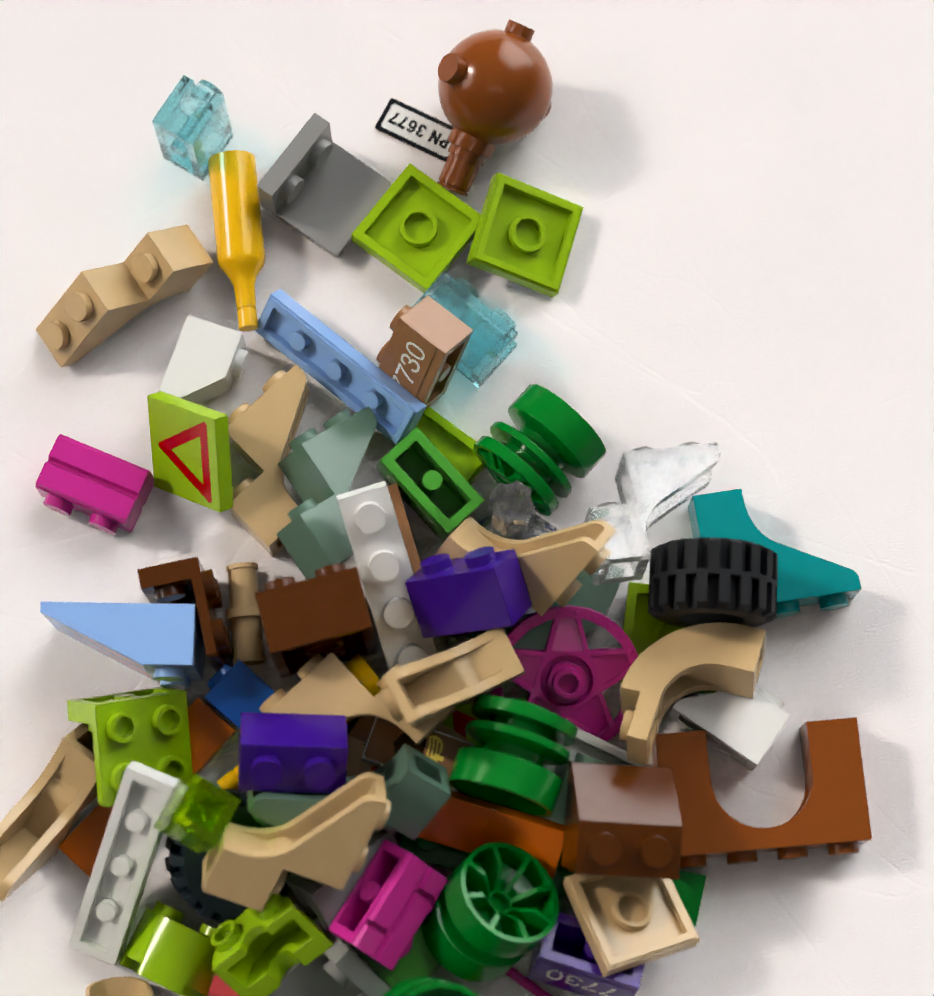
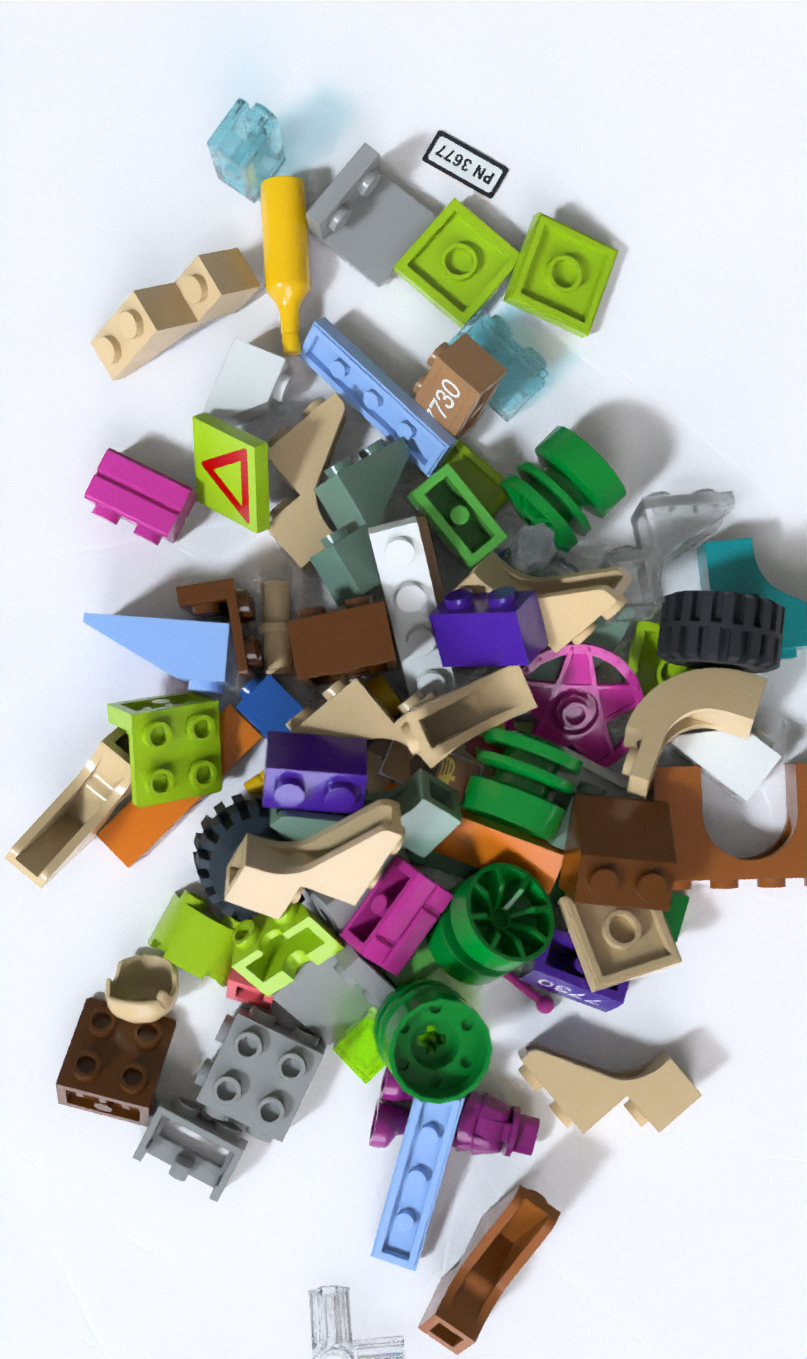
camera: 10 degrees right, 10 degrees up
(122, 864) = (155, 856): white plate -> none
(197, 813) = (223, 826): clear neon green brick -> none
(492, 94) = (539, 133): dark orange piece -> none

